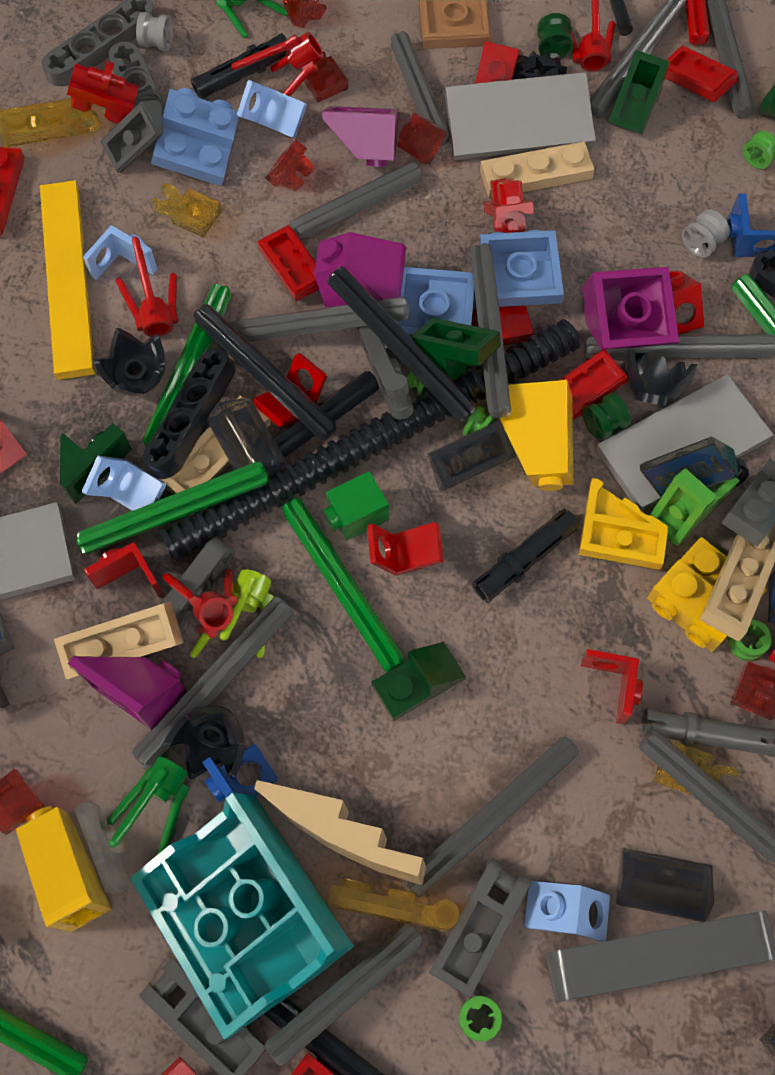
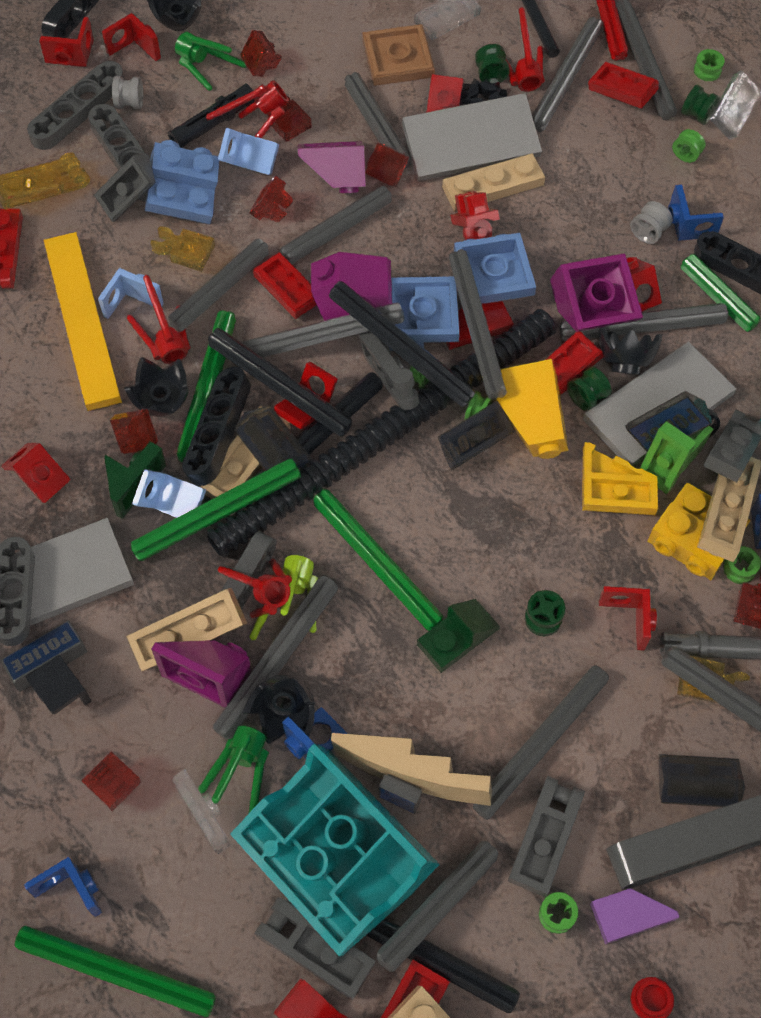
camera: 10 degrees left, 5 degrees down
(61, 870) = (168, 833): yellow slope -> none
(98, 409) = (133, 430): none -> clear red tile
(102, 89) = (91, 148): red hips -> none
(118, 563) = (174, 563): red bracket -> none
(217, 255) = (218, 285): none -> dark grey axle
(324, 856) = (400, 793): none -> dark grey tile
(356, 506) = (381, 489): green brick -> none
(396, 906) = (469, 827): clear yellow plate -> none
(407, 549) = (431, 522): red bracket -> none
(456, 345) = (450, 339): dark green slope -> none
(513, 565) = (526, 526): black pin -> none
(517, 659) = (548, 605): none -> dark green wheel
(560, 1031) = (629, 914): none -> medium lavender tile
(566, 909) = (618, 809): light blue bracket -> none
(639, 92) = (575, 106): dark green slope -> none

